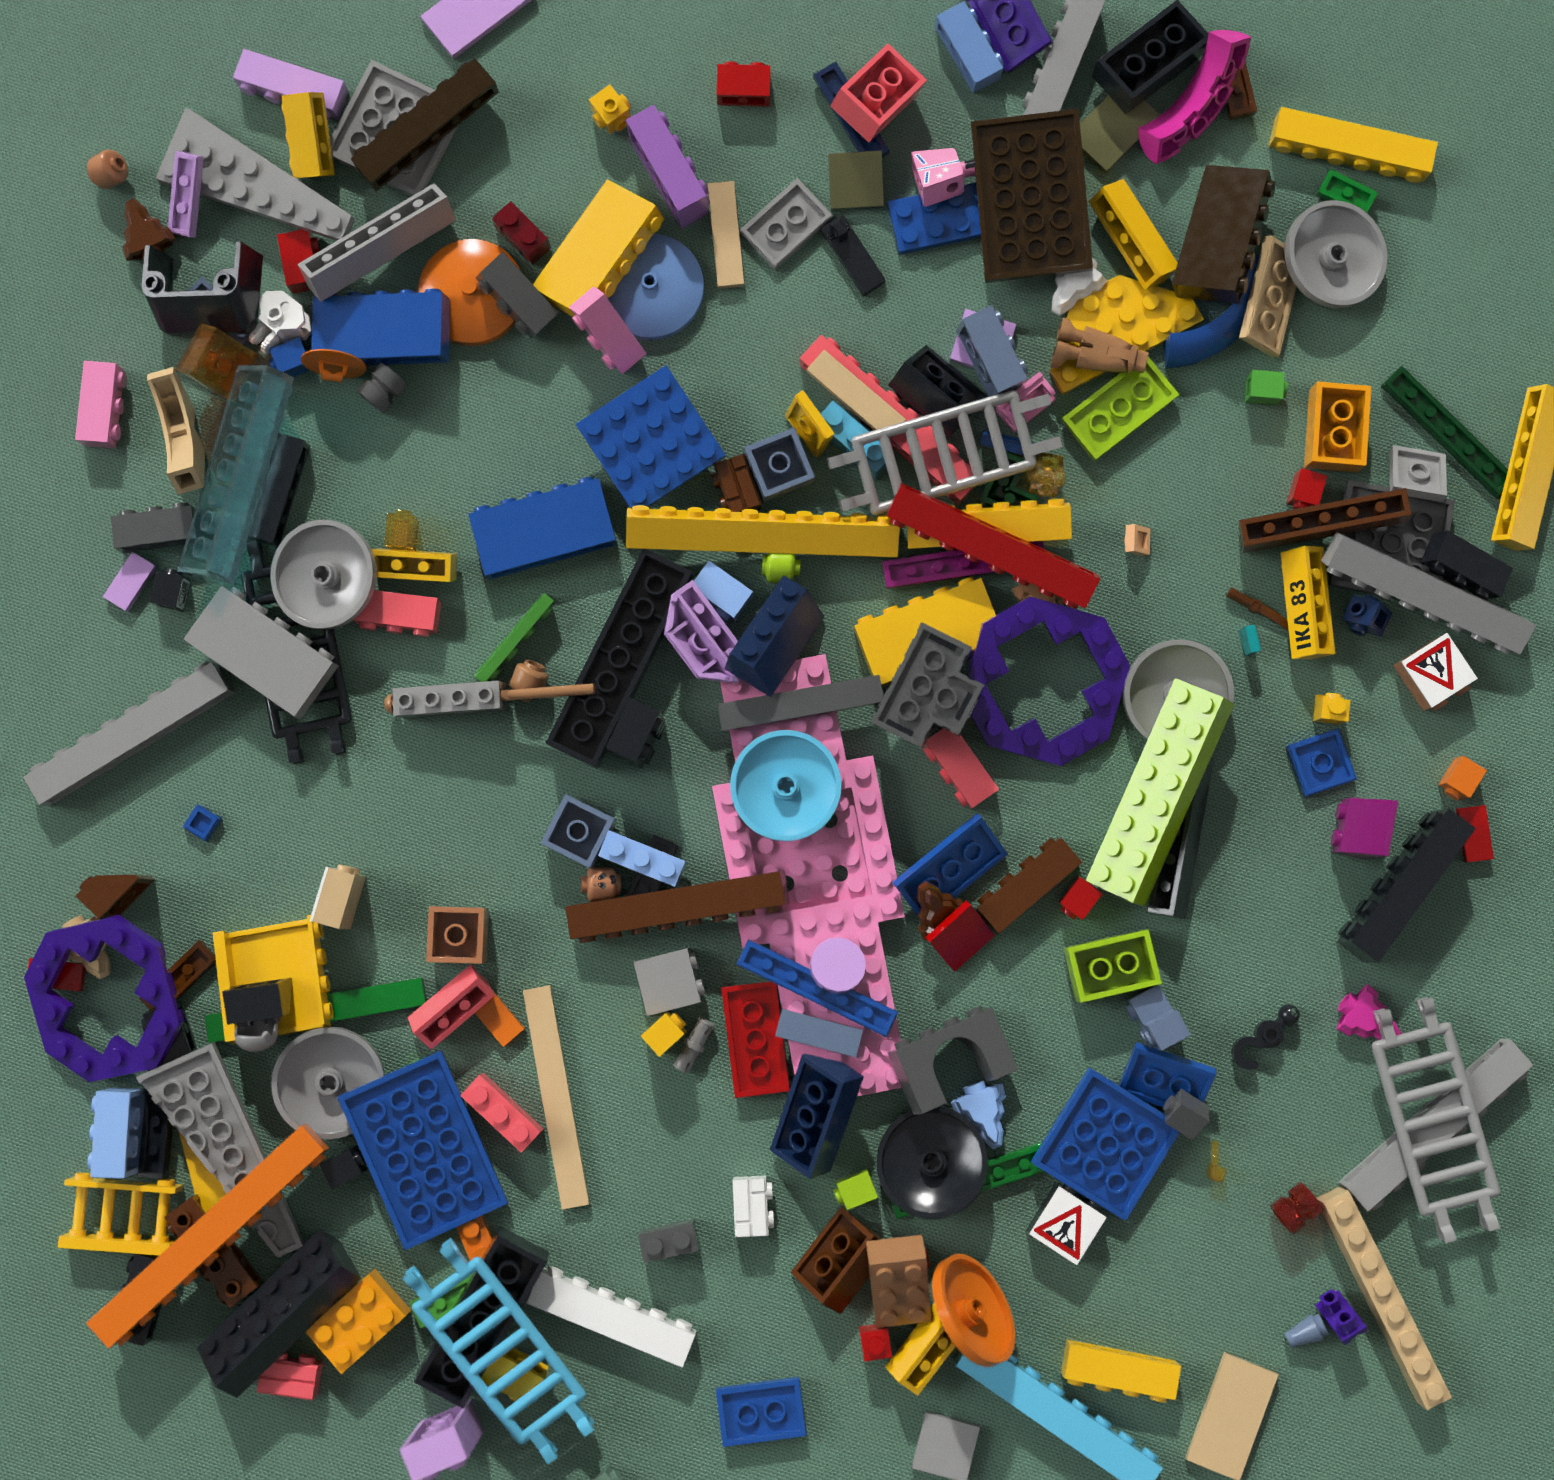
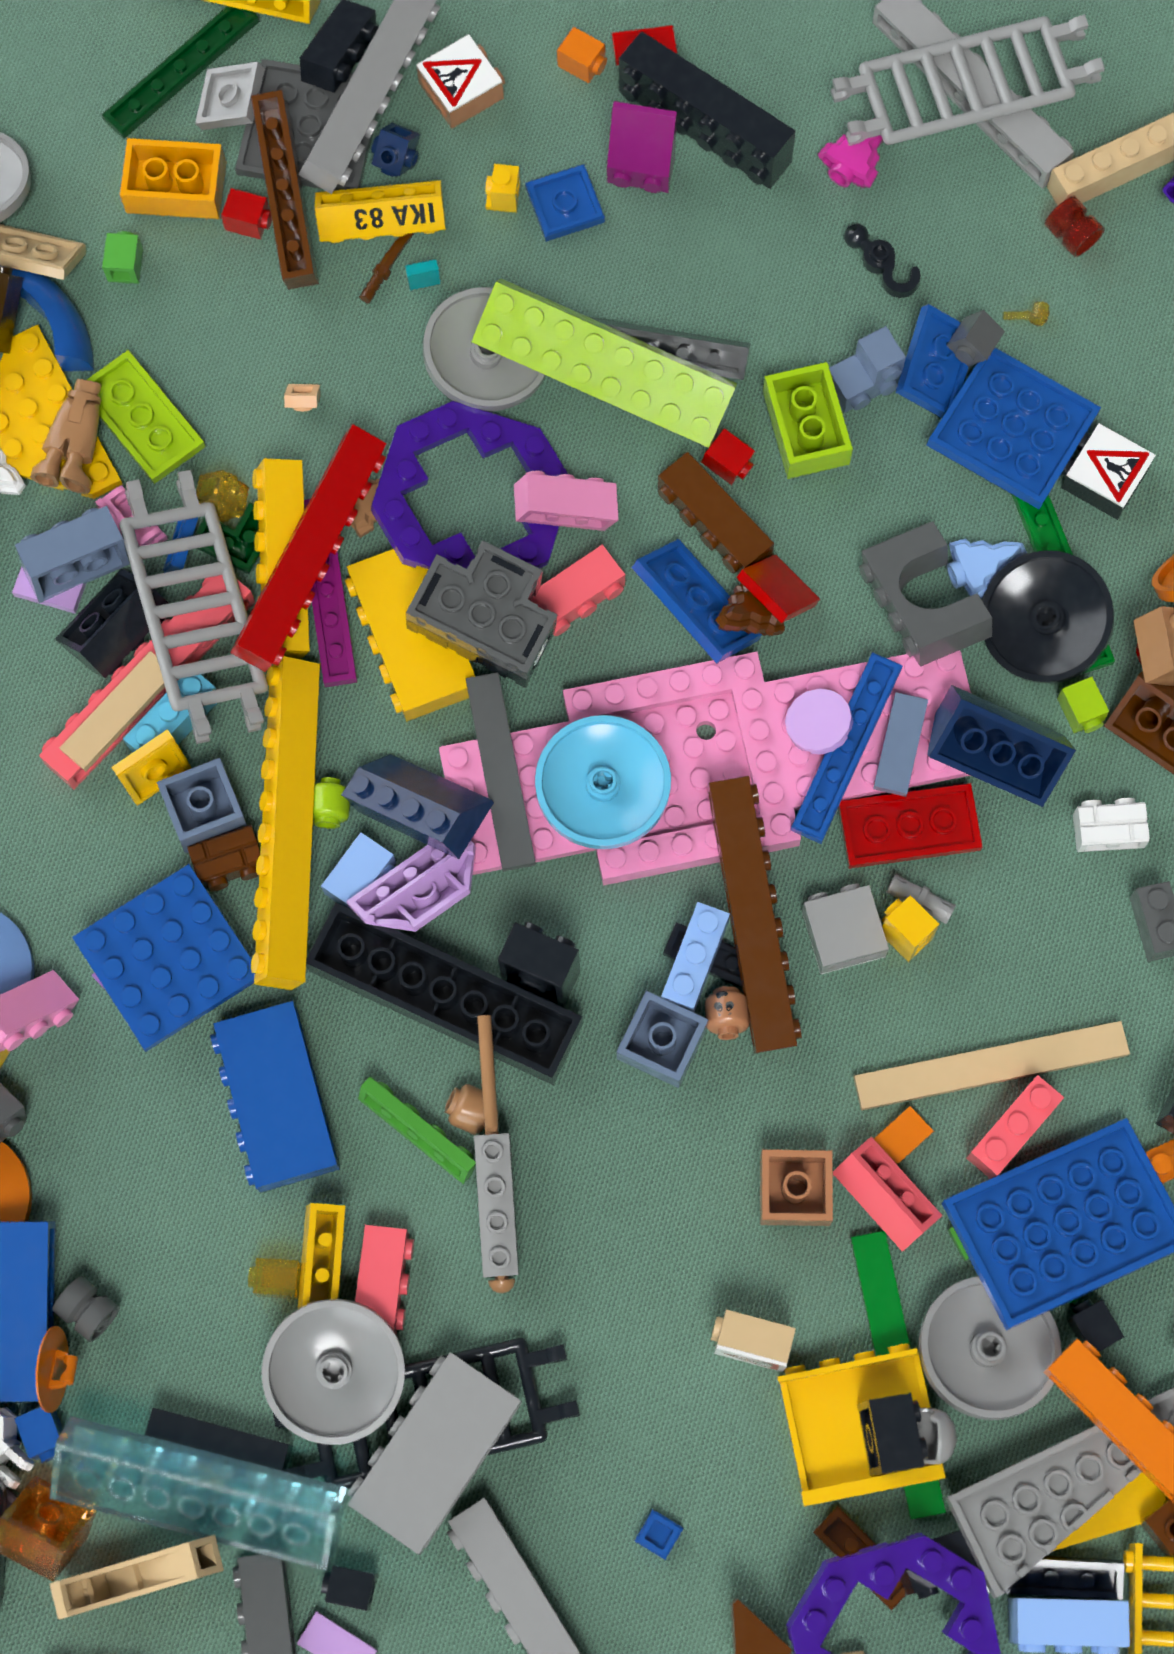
camera: 90 degrees left, 10 degrees down
(1037, 758) = (565, 501): none -> bright pink brick

